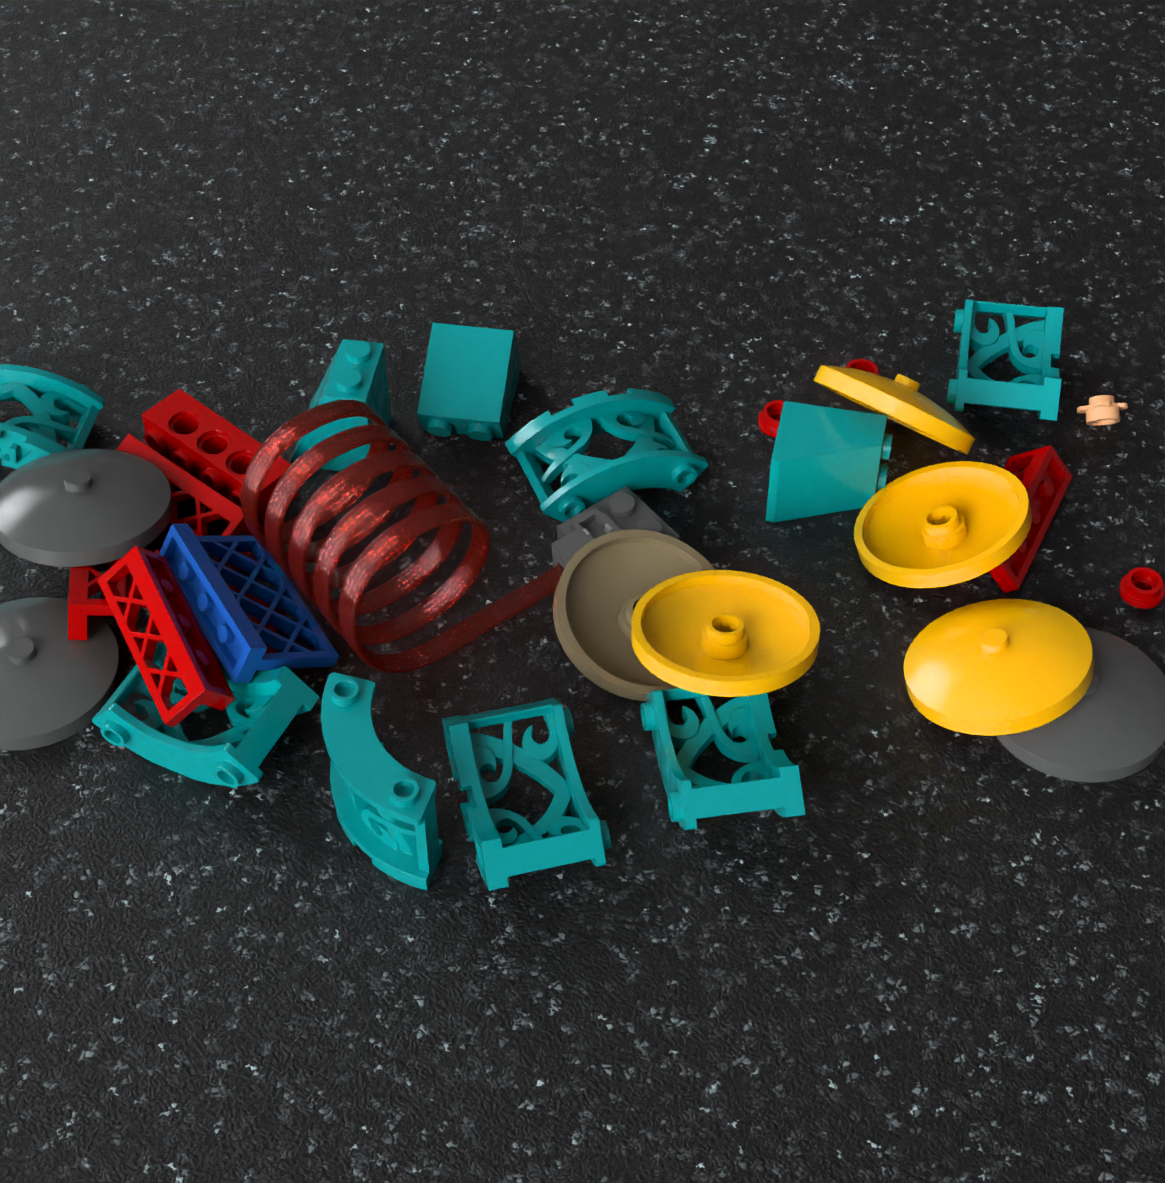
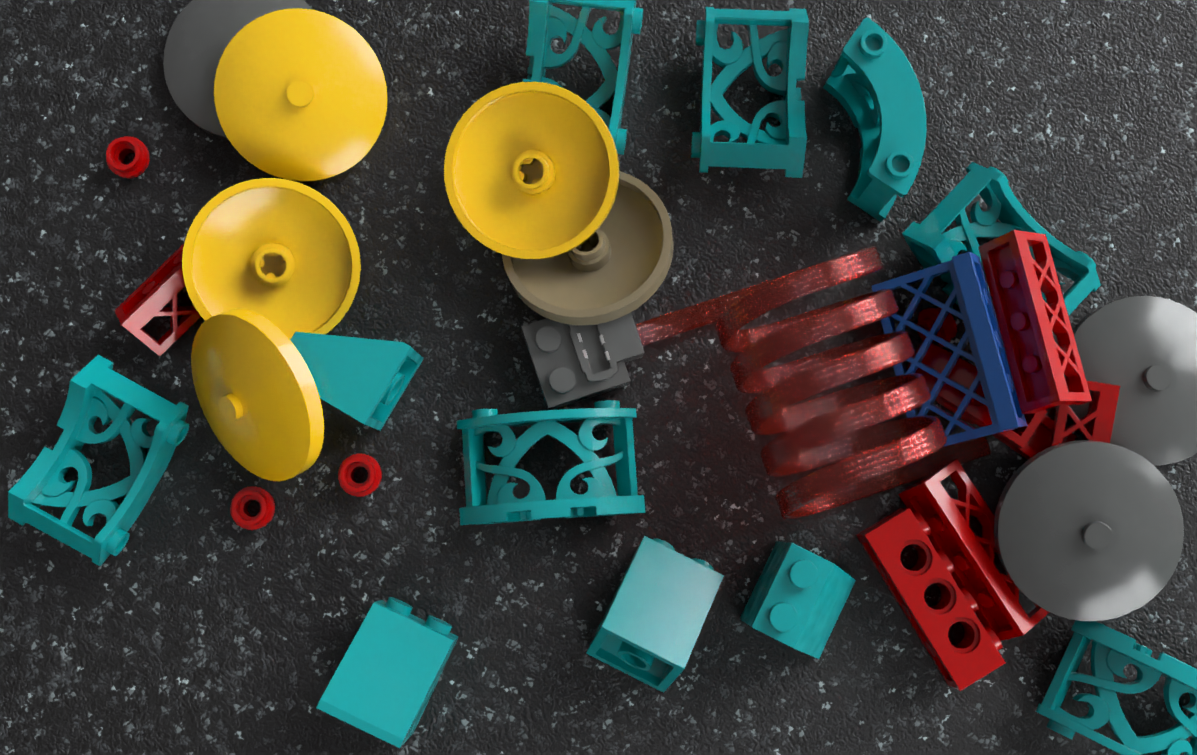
camera: 160 degrees left, 35 degrees up
(682, 293) = (389, 671): none -> teal slope
(1102, 410) = (40, 376): light nougat plate -> none

